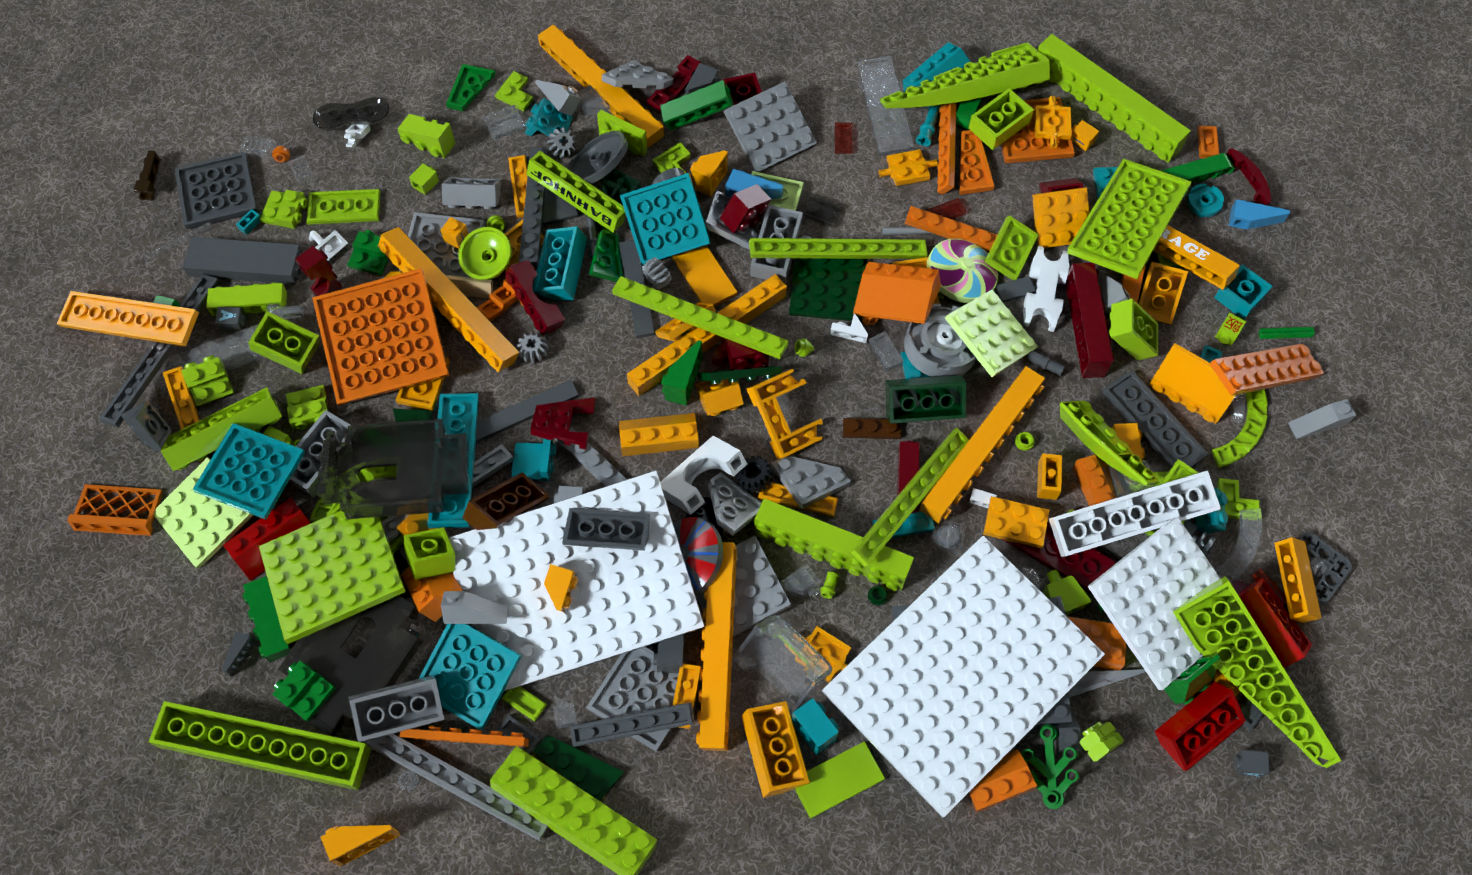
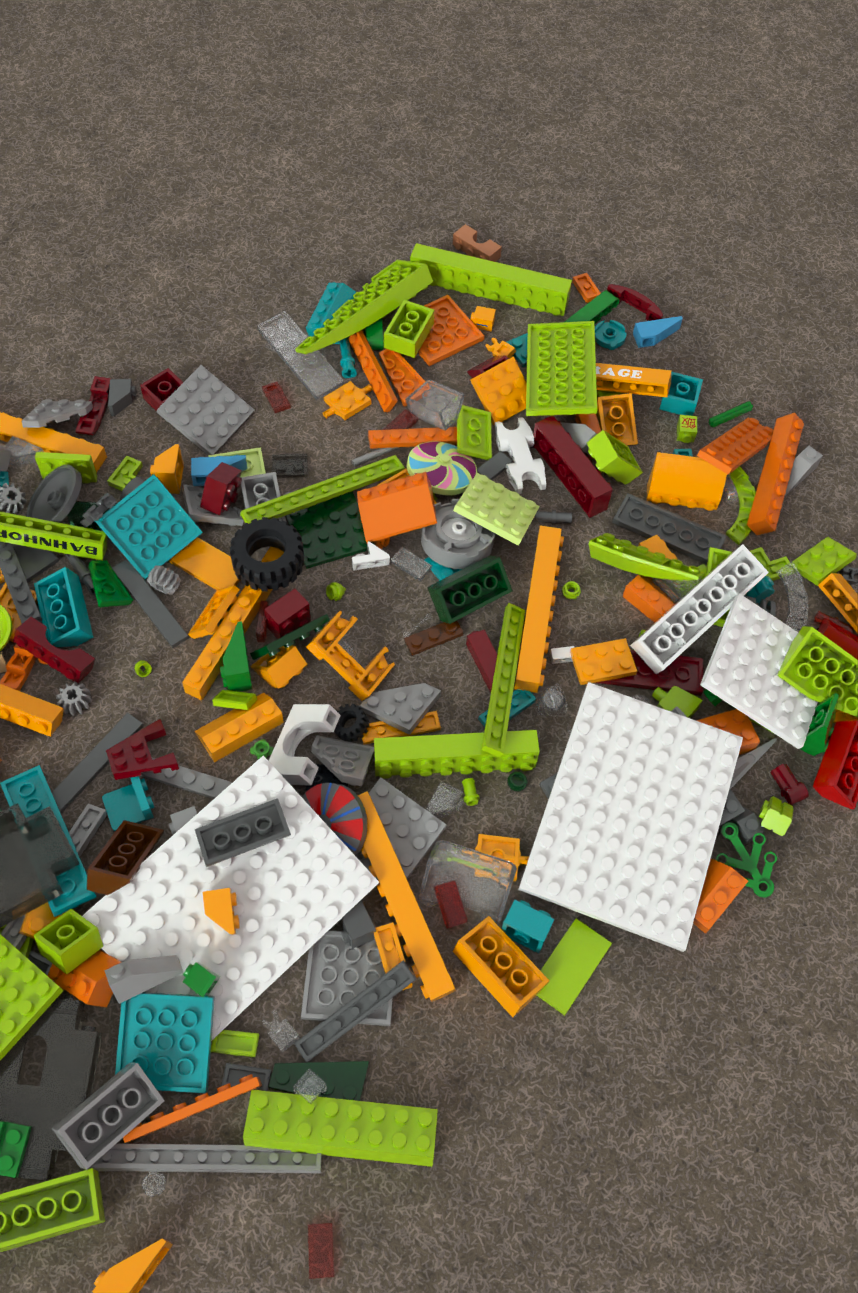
camera: 30 degrees left, 5 degrees down
(517, 636) = (200, 979): none -> green slope
(562, 767) = (310, 1086): none -> clear panel
(598, 345) = (147, 666): none -> lime hinge
(622, 188) = (95, 513): none -> dark grey plate
(665, 408) = (234, 699): none -> lime tile
(667, 459) = (261, 744): none -> bright green plate
(696, 105) = (126, 416): green brick -> none
(700, 317) = (228, 600): lime plate -> none
(759, 268) = (267, 534): none -> black tyre
(759, 675) = (450, 904): none -> clear red tile
(987, 205) = (436, 404): none -> clear slope
(1049, 476) = (609, 610): light orange brick -> none
(1053, 122) = (453, 316): light orange plate -> none
(1084, 174) = (501, 349): none -> light orange plate
(1121, 67) = (466, 240): none -> nougat arch
(1133, 723) = (790, 788): none -> dark red piece
(1295, 413) = (775, 474): none -> orange brick
(1296, 520) = (823, 560): none -> lime plate

